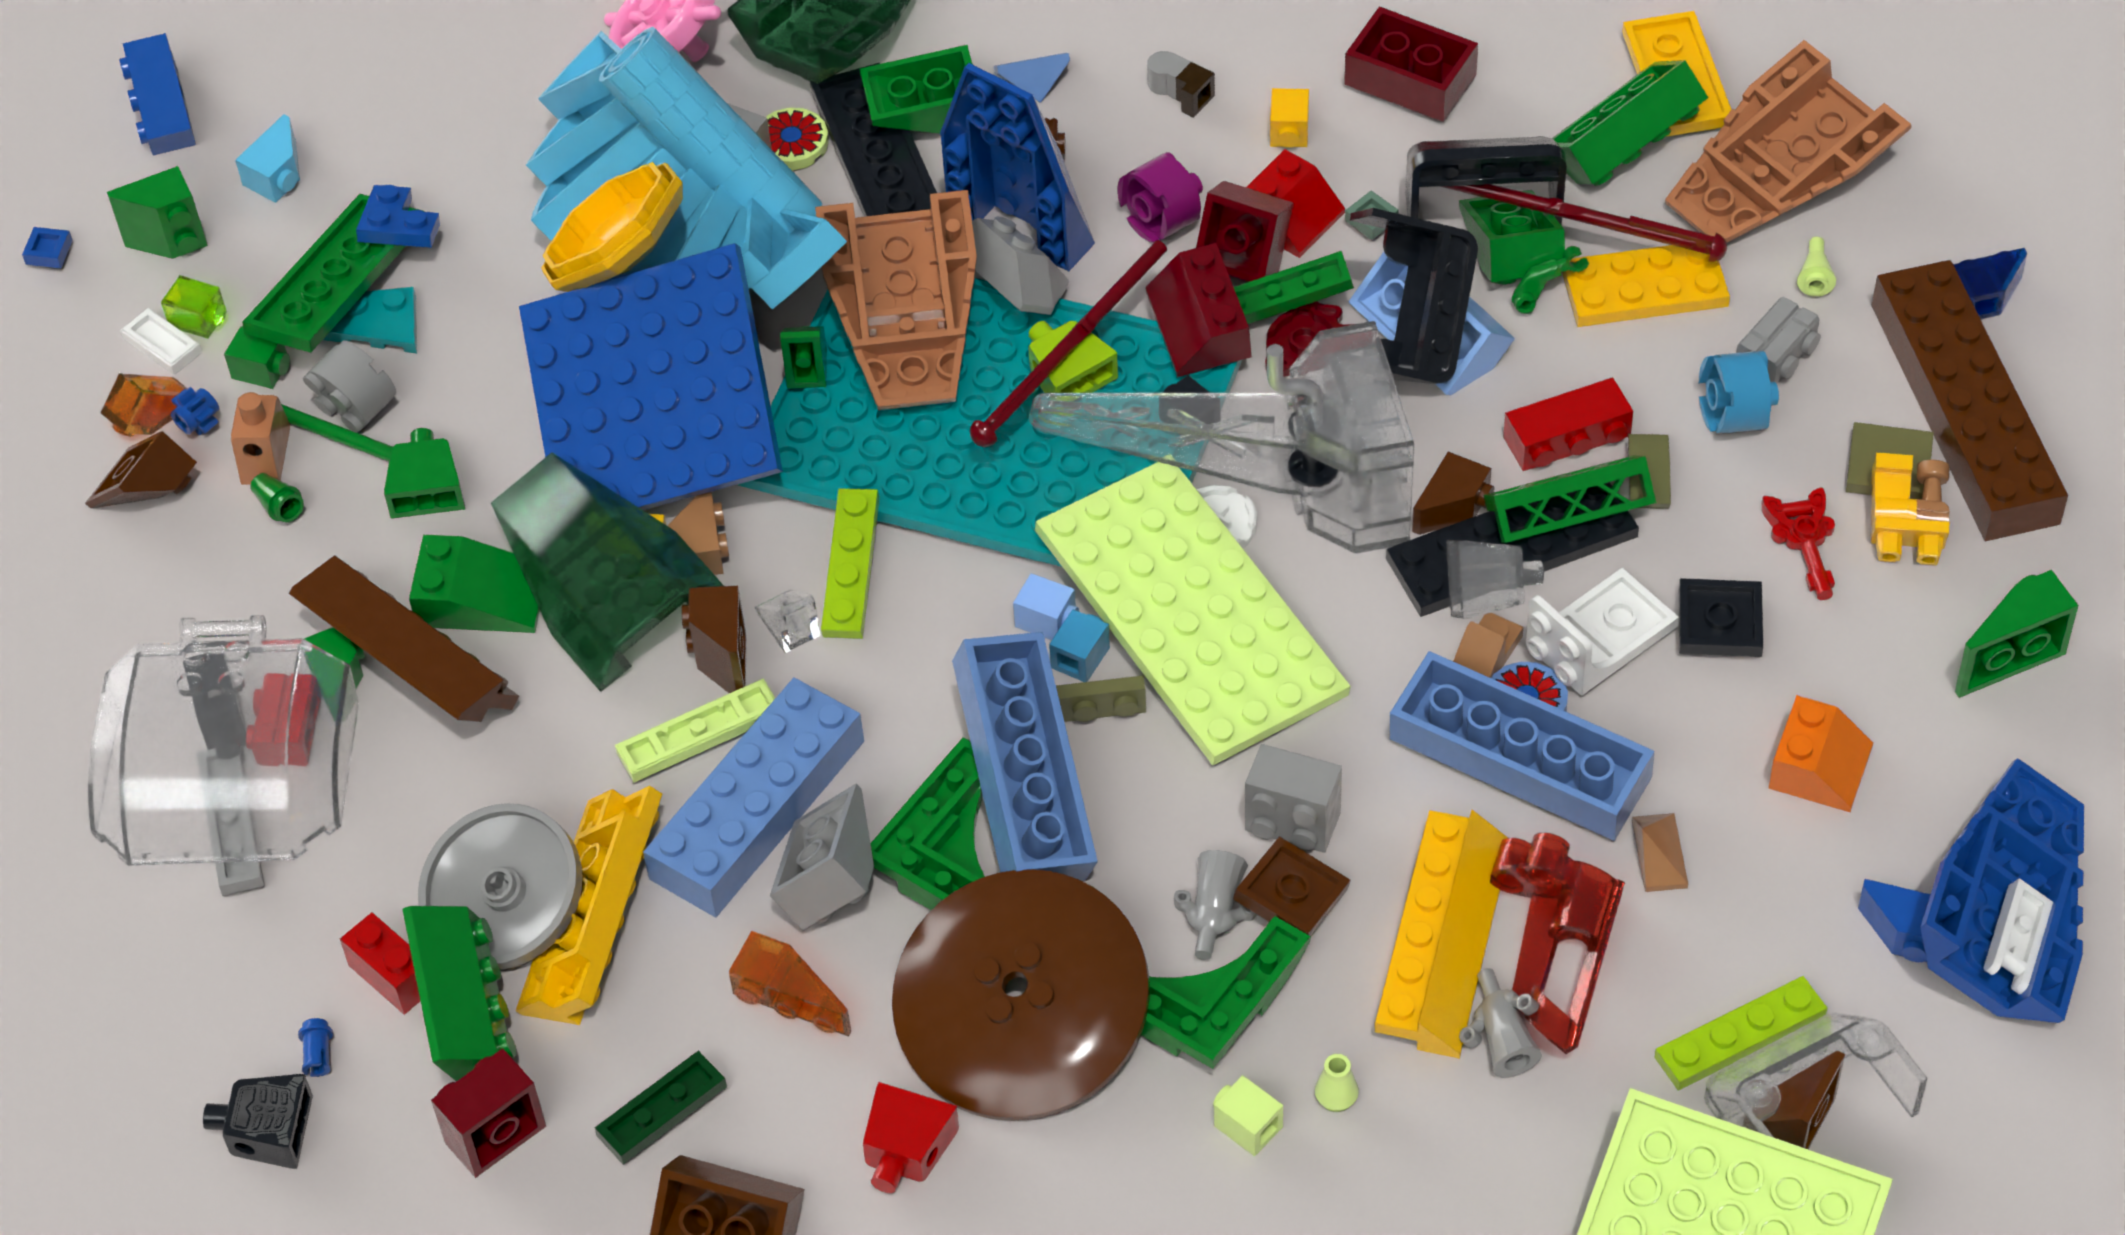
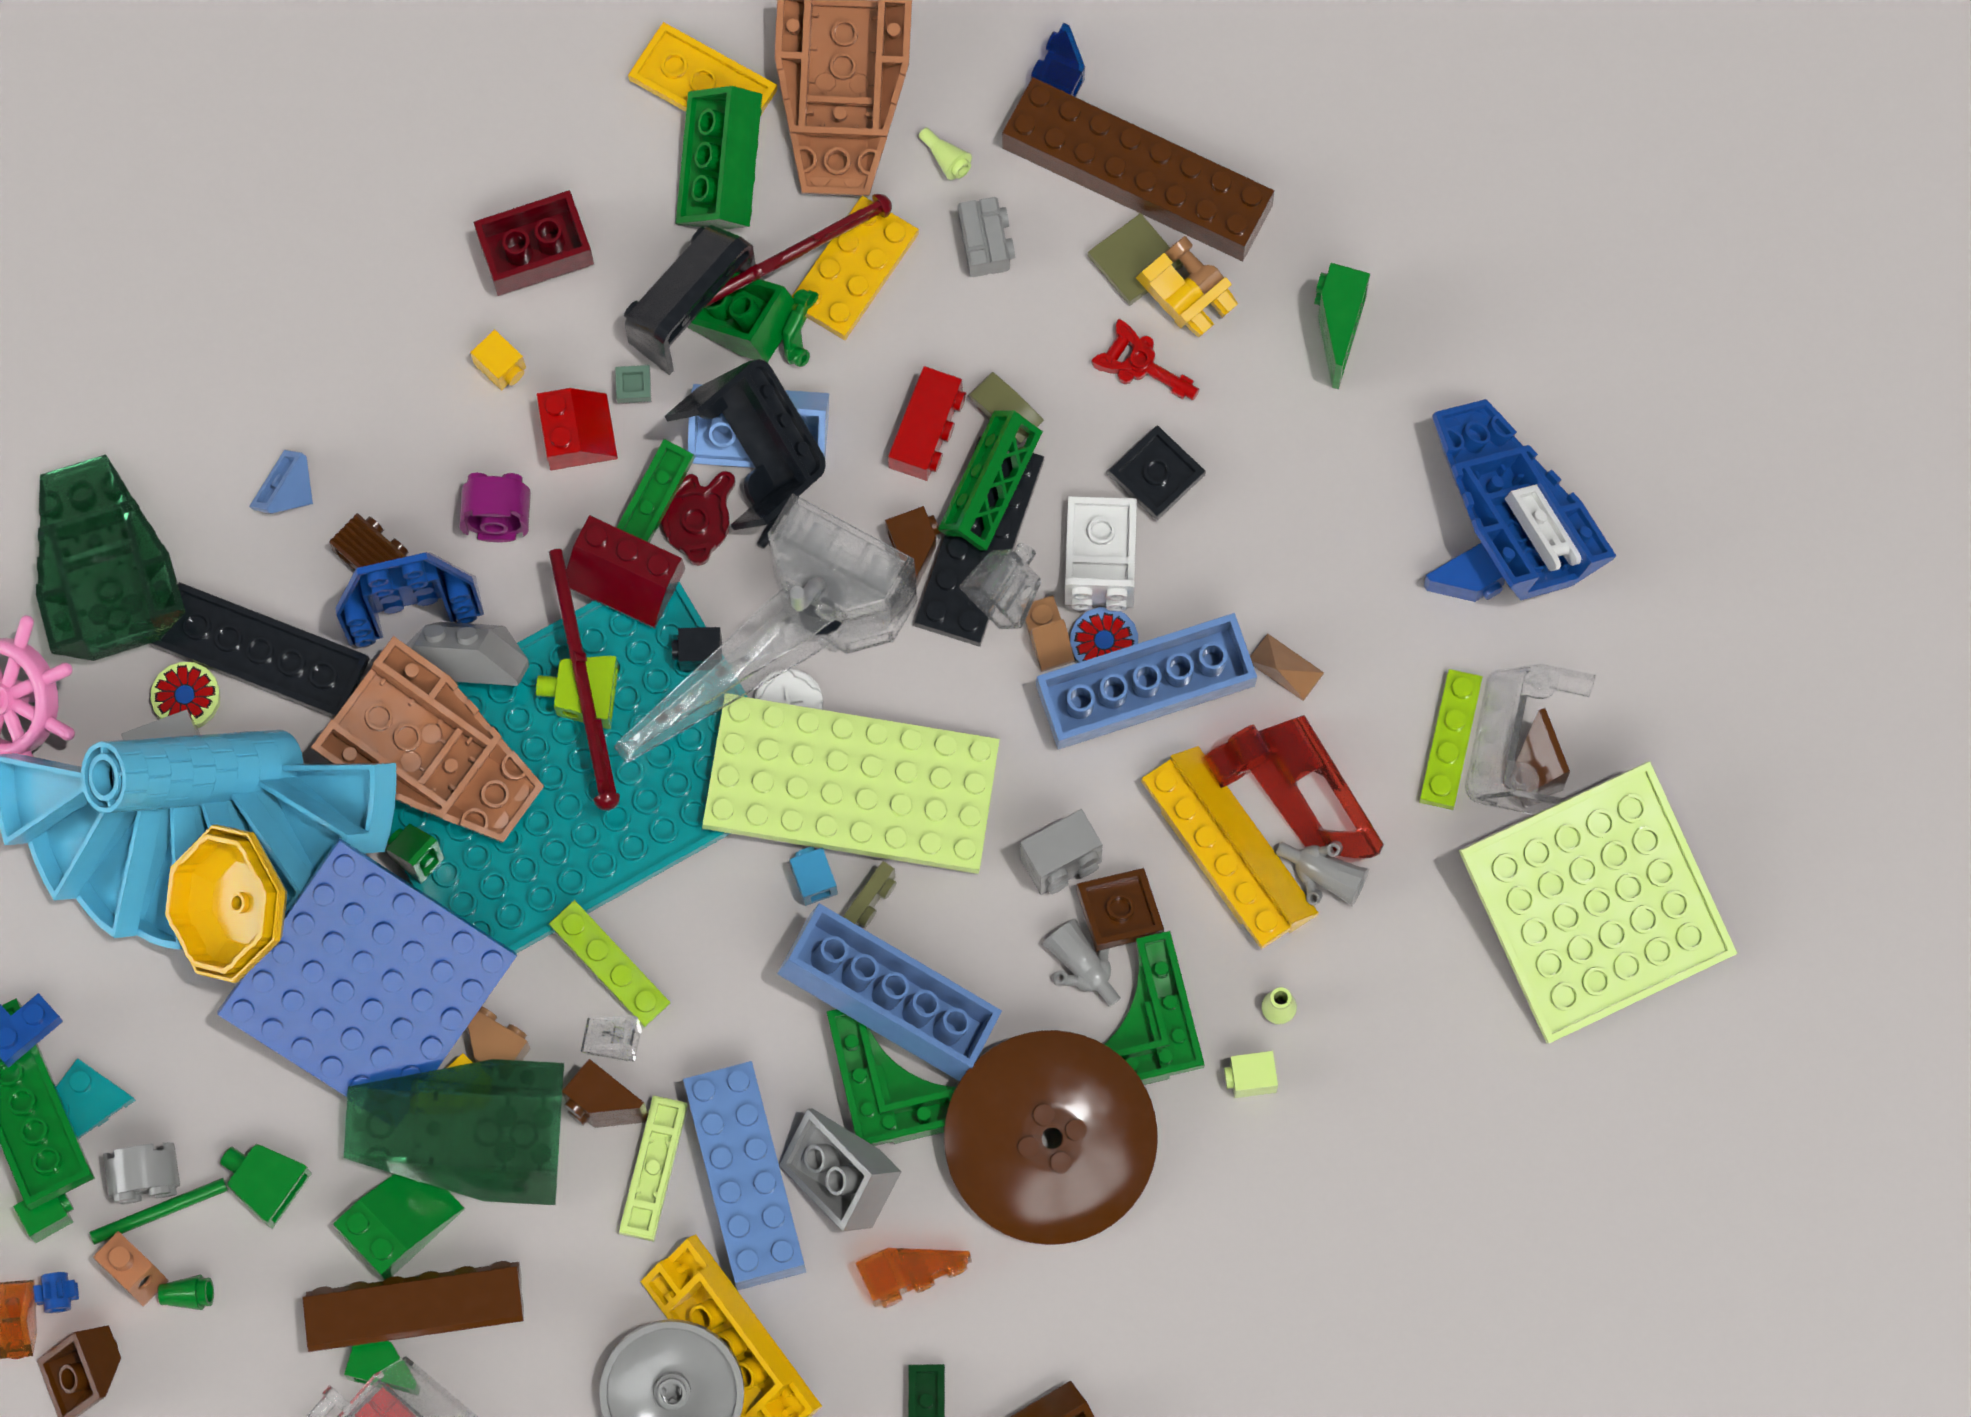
camera: 50 degrees left, 20 degrees up
(906, 1135) = (1083, 1289): red torso -> none
(915, 89) = (245, 578): green slope -> none
(1043, 606) = (764, 872): light blue brick -> none
(1181, 81) = (392, 398): leg -> none
(1247, 229) = (582, 483): dark red brick -> none
(1737, 392) = (1006, 302): dark azure brick -> none
(1820, 755) = (1310, 513): orange slope -> none

